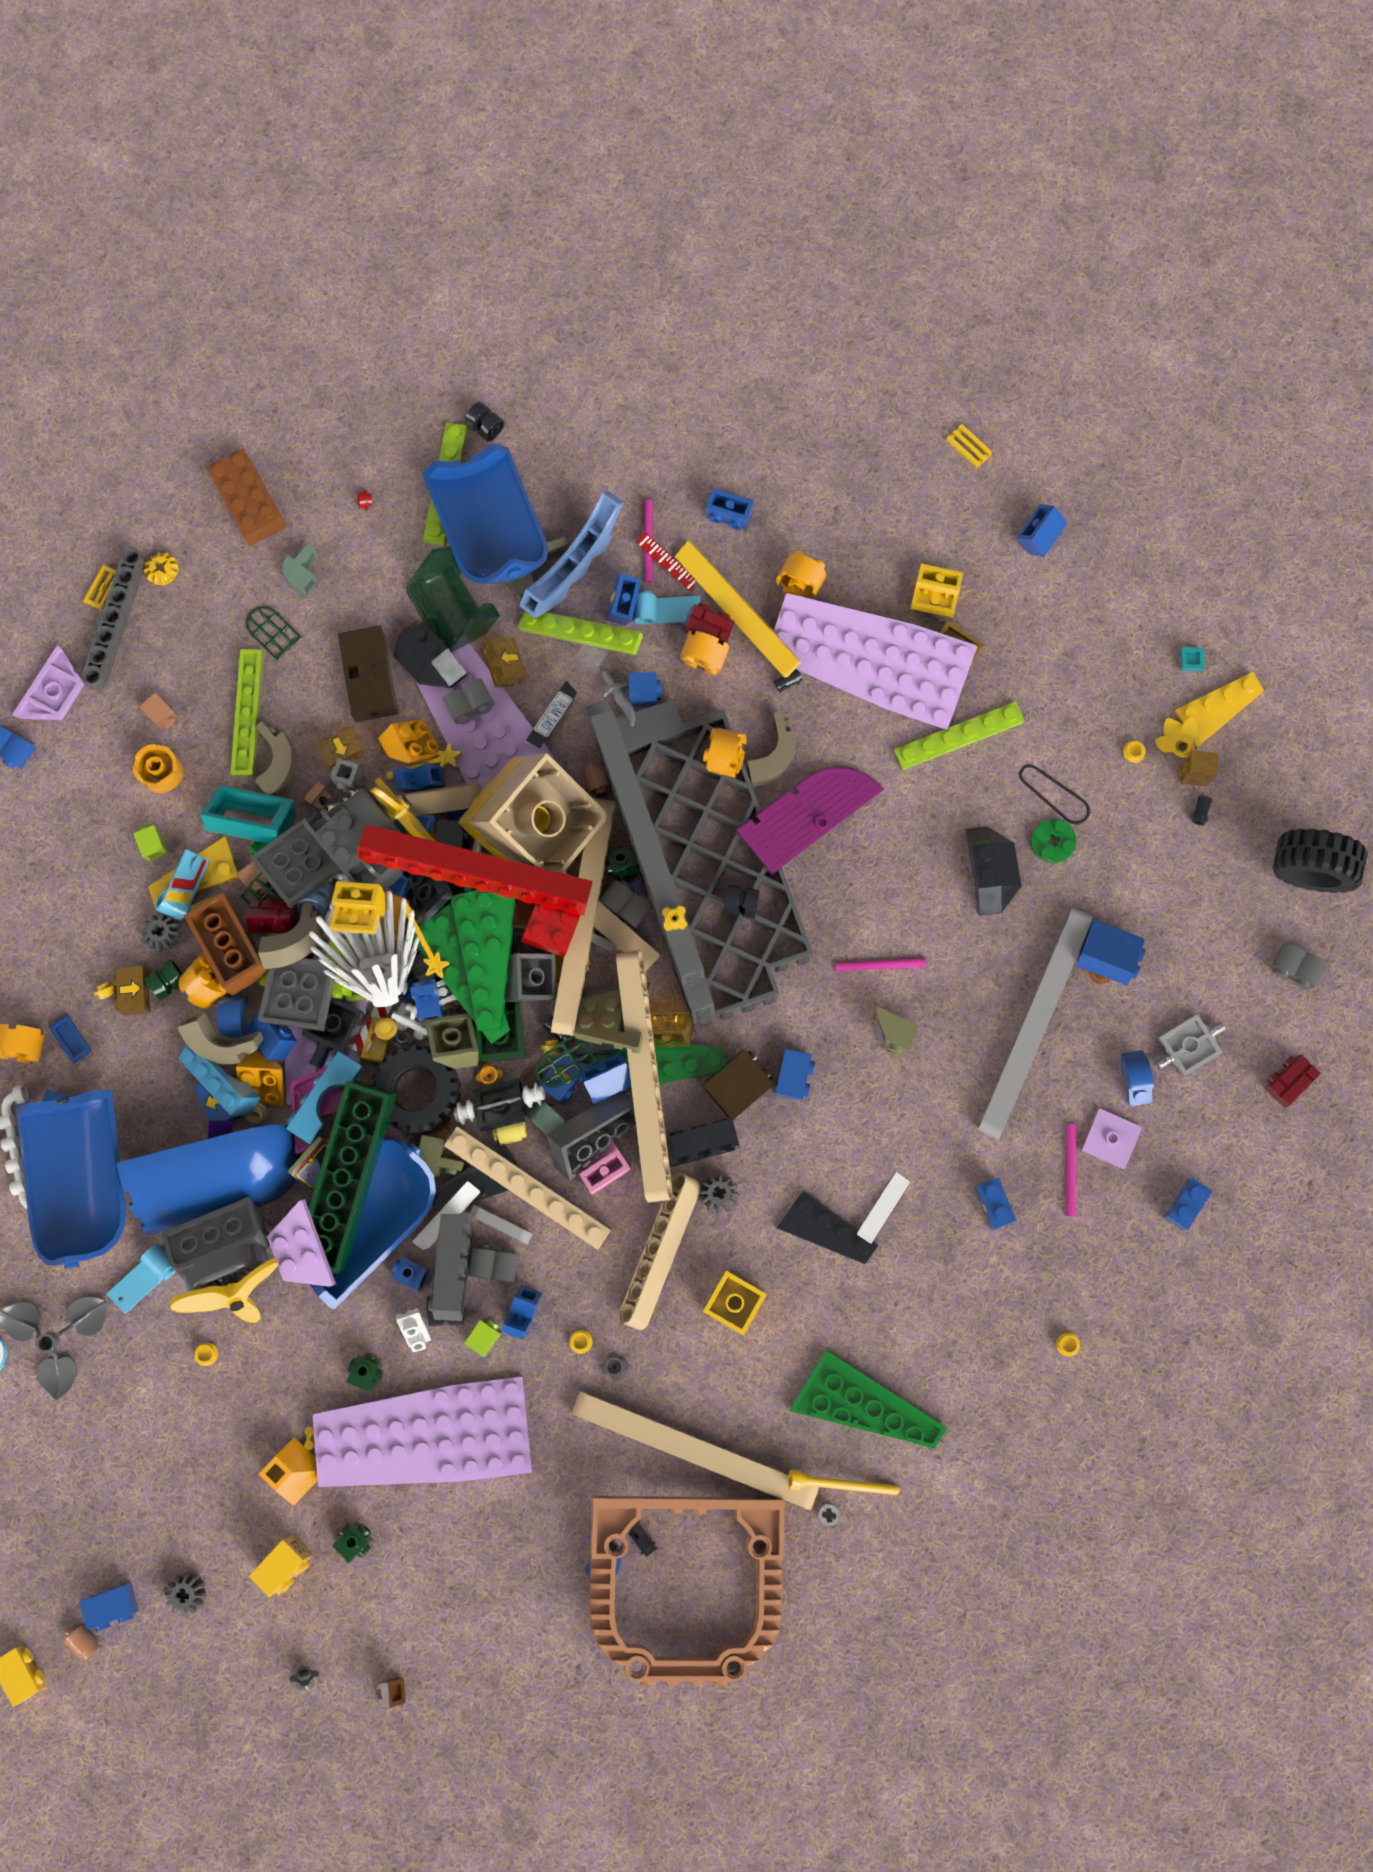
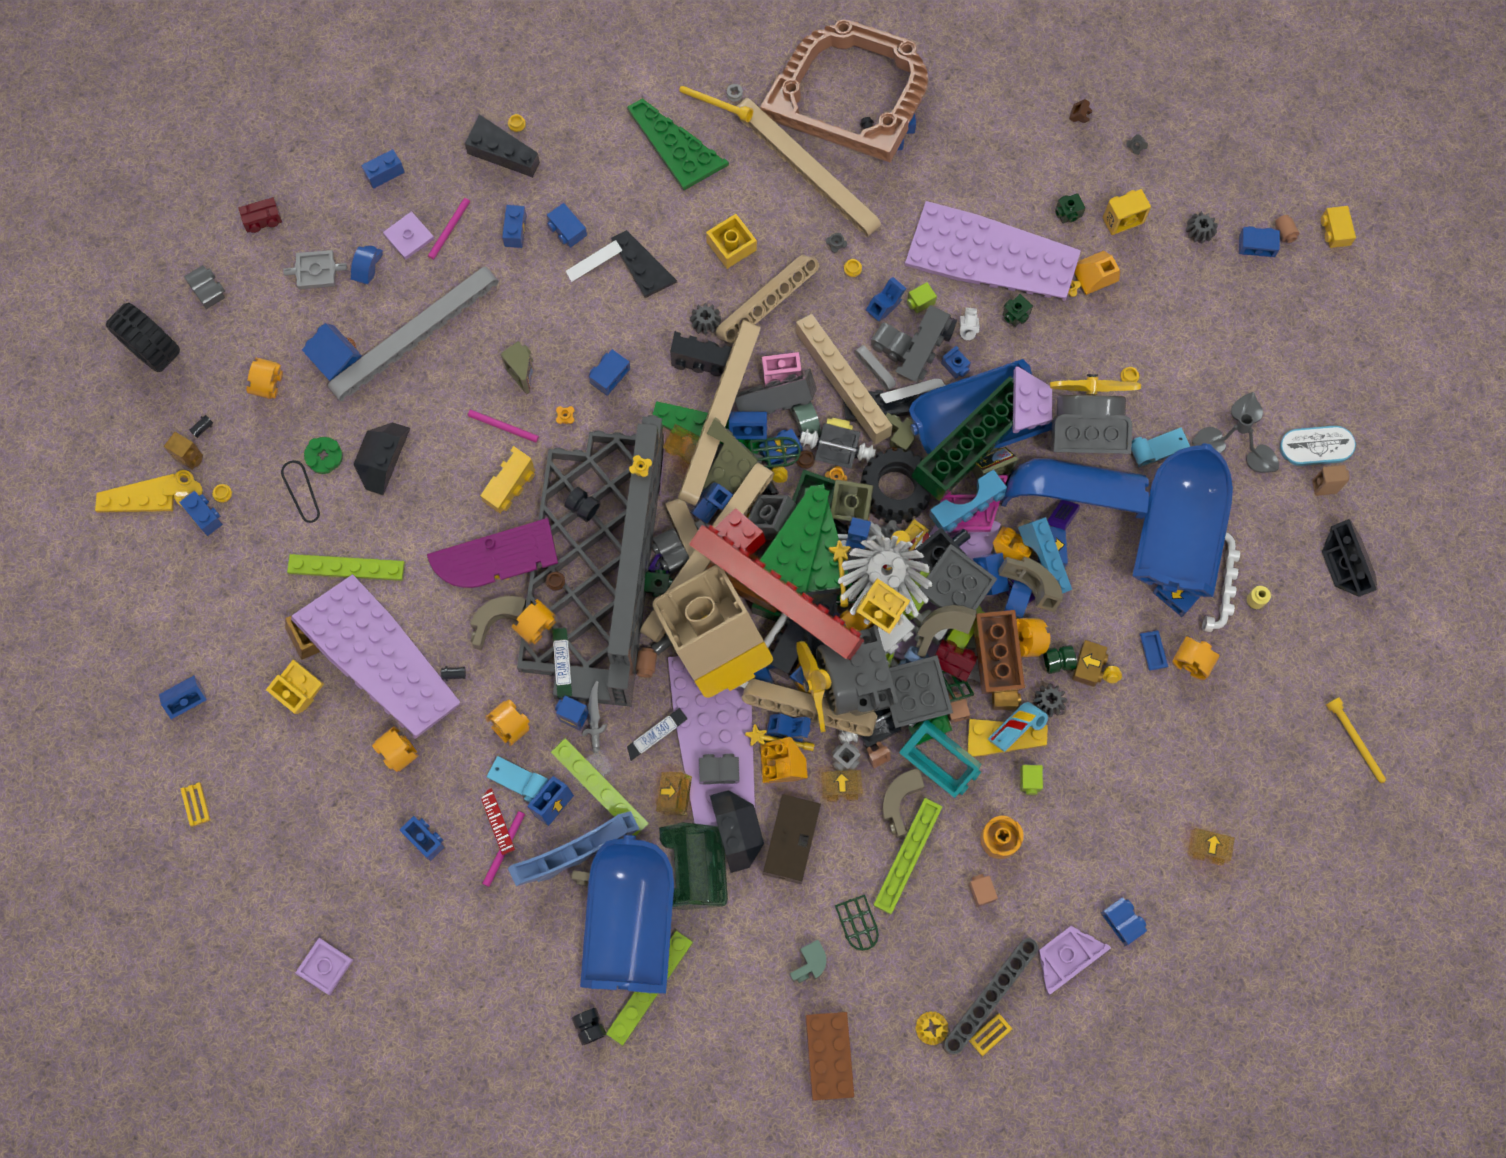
camera: 165 degrees left, 5 degrees down
(364, 499) = (727, 1005): red plate -> none
(603, 976) = (711, 499): none -> blue brick
(680, 734) = (562, 664): none -> sticker
(708, 622) = (492, 744): dark red brick -> none
(729, 811) = (555, 581): none -> reddish brown plate
(738, 608) = (461, 750): yellow tile -> none
(738, 1084) = (653, 384): dark brown brick -> none
(760, 363) = (324, 966): none -> lavender plate
(820, 1000) = (565, 419): none -> light orange plate
(837, 899) = (509, 481): none -> yellow wedge
(936, 1234) = (566, 225): none -> blue brick
(1072, 1298) = (499, 147): none -> black wedge
(1140, 717) = (199, 511): none -> blue brick
(1165, 887) = (264, 377): none -> light orange brick
(1192, 659) = (133, 541): teal plate -> none

